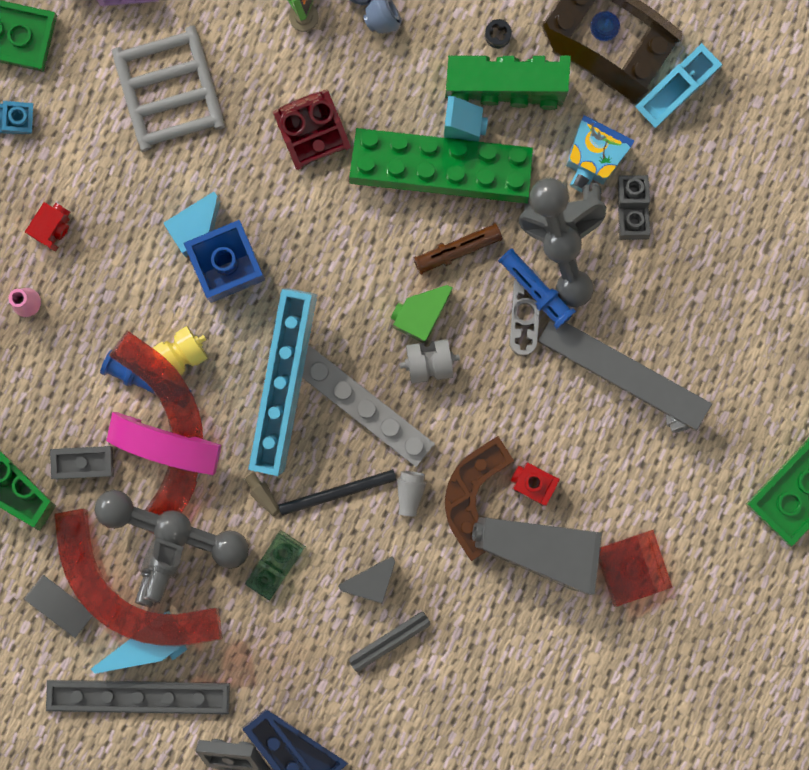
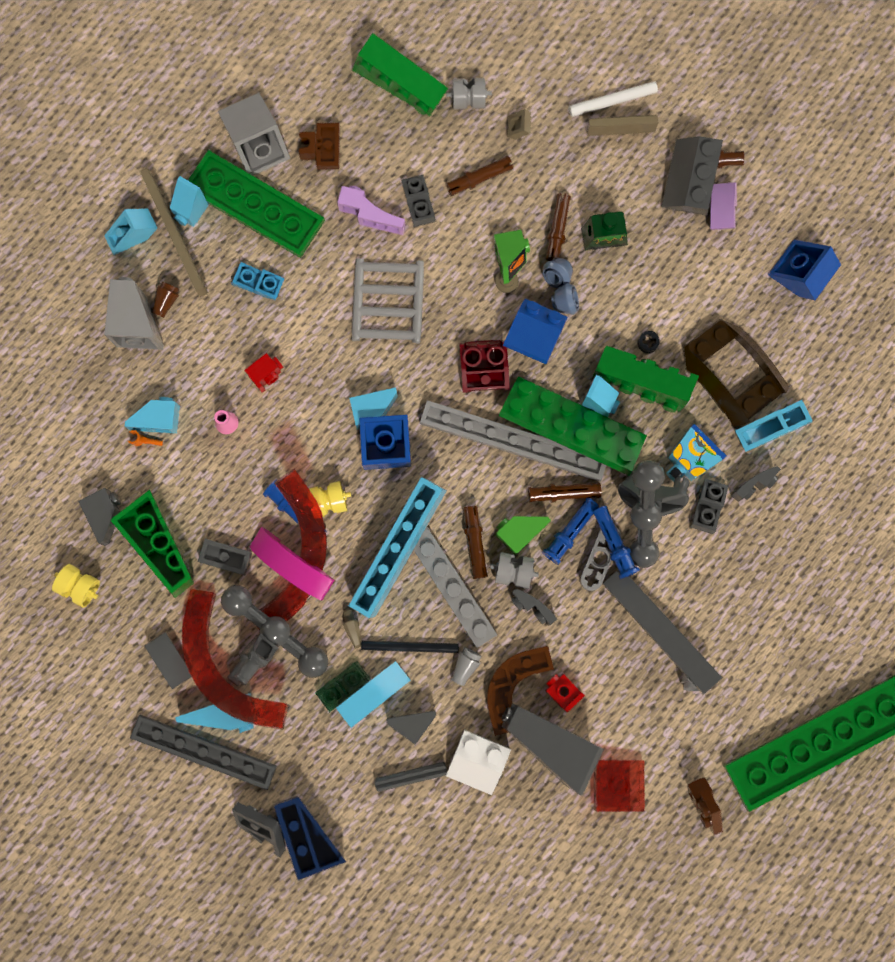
camera: 20 degrees right, 5 degrees down
(313, 562) = (373, 694): none -> medium azure slope
(358, 66) = (535, 331): none -> blue slope
(369, 339) = (475, 543): none -> reddish brown pin
(371, 208) = (510, 440): none -> light grey plate
(456, 393) = (525, 601): none -> dark grey slope
(462, 597) = (478, 762): none -> white slope
(476, 305) = (564, 539): none -> blue pin
(605, 26) = (731, 363): clear blue plate -> none
(685, 155) = (764, 479): none -> dark grey slope
(734, 550) = (703, 799): none -> reddish brown plate

